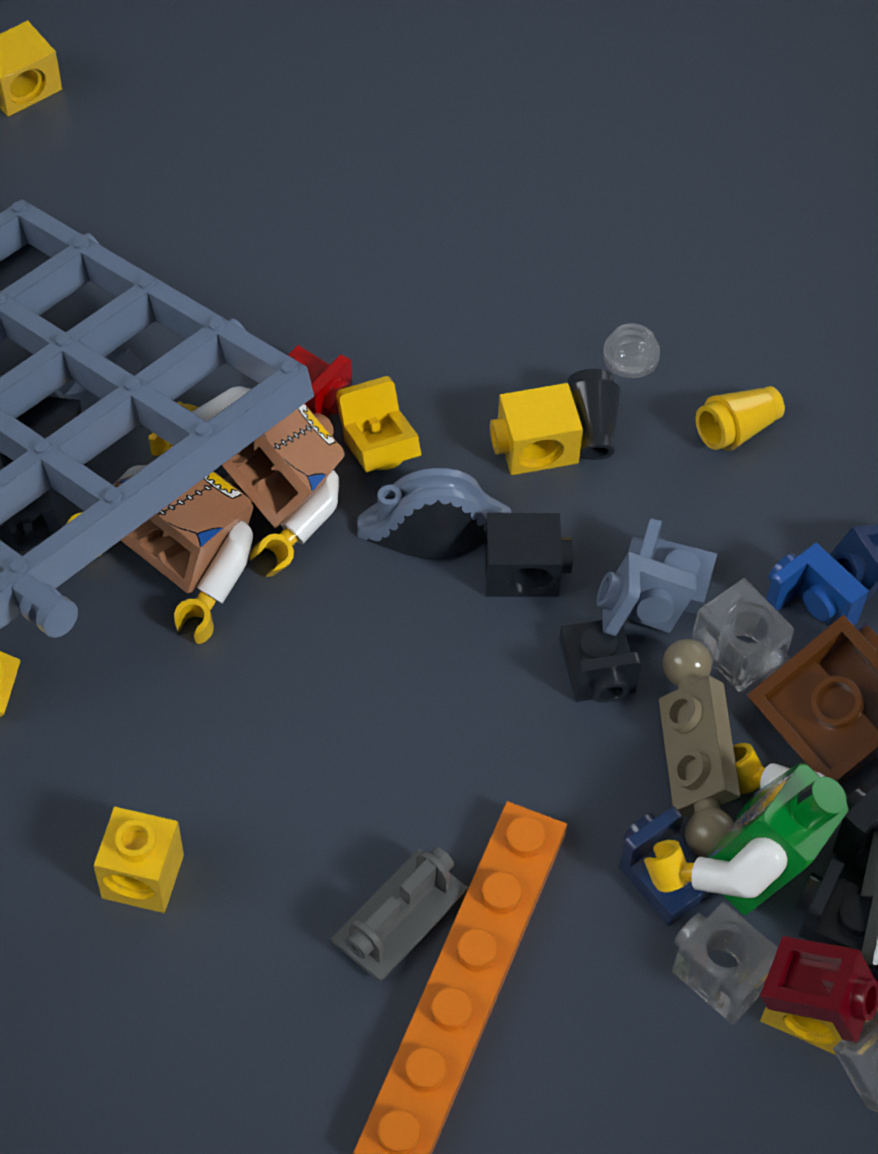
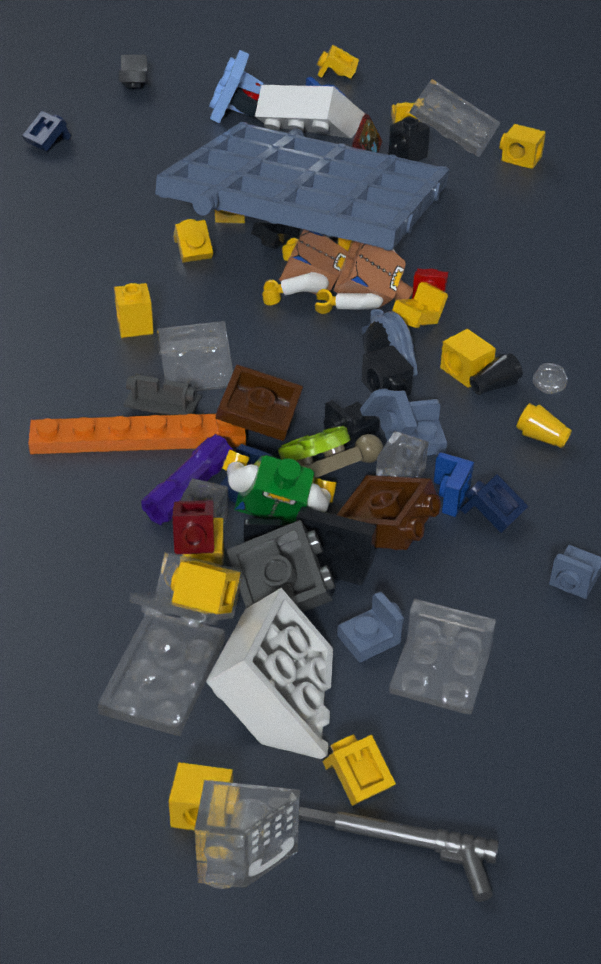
camera: 65 degrees right, 15 degrees down
(321, 812) = (196, 355): none -> clear bracket
(525, 768) = (259, 402): none -> reddish brown plate
(662, 994) = (202, 465): none -> dark purple axle
(663, 735) = (314, 444): none -> lime tile

